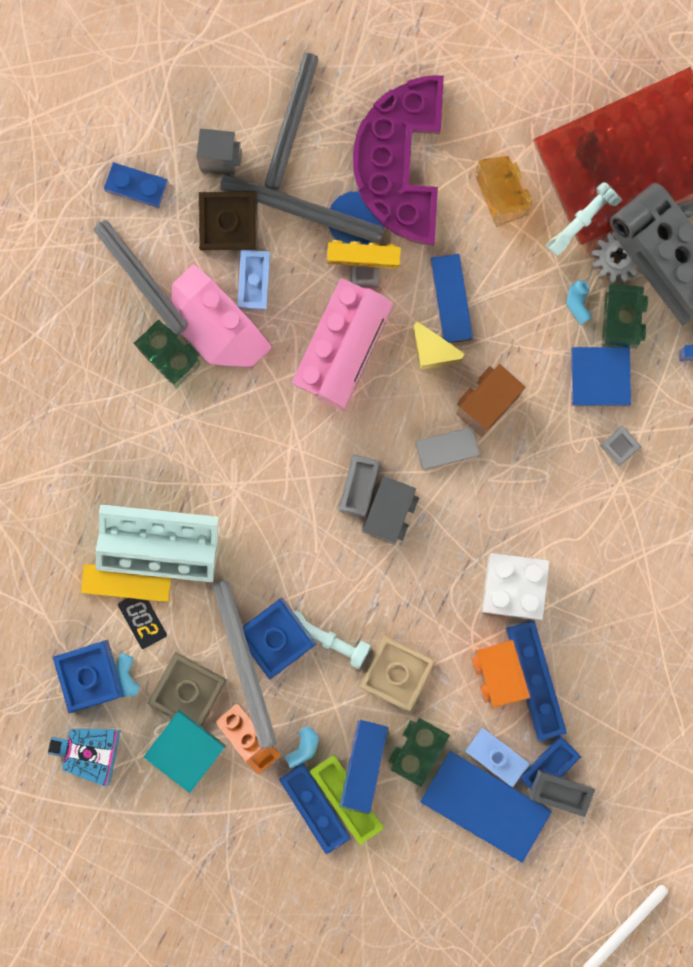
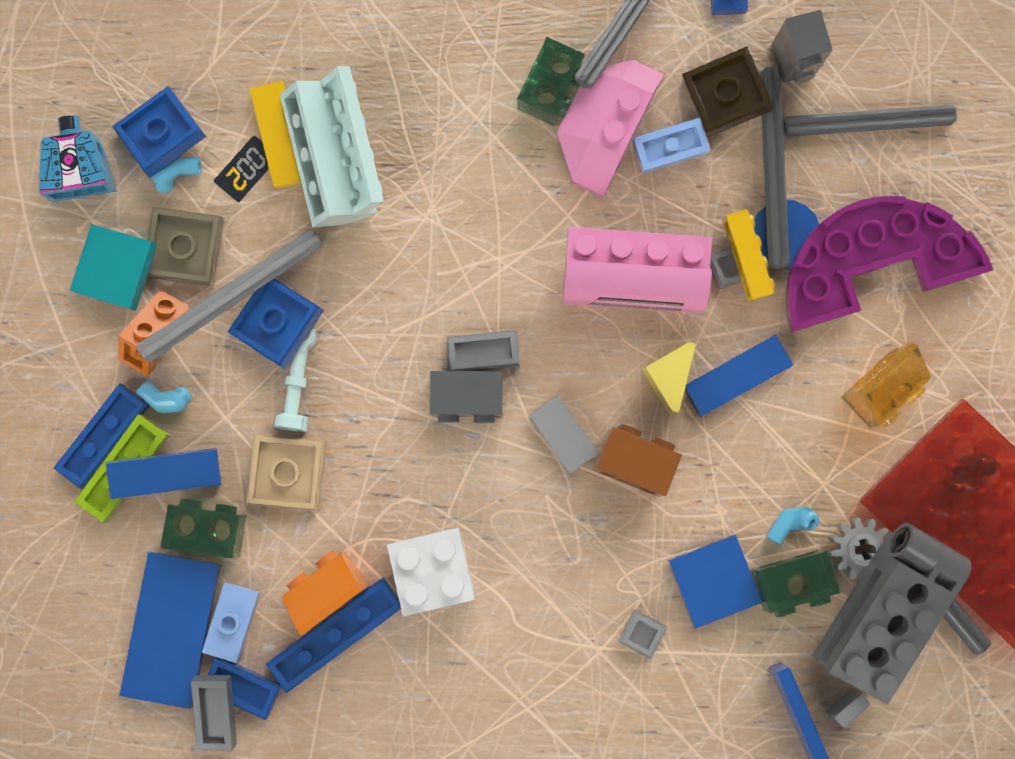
camera: 75 degrees right, 0 degrees up
(561, 240) = (931, 508): light aqua piece -> none

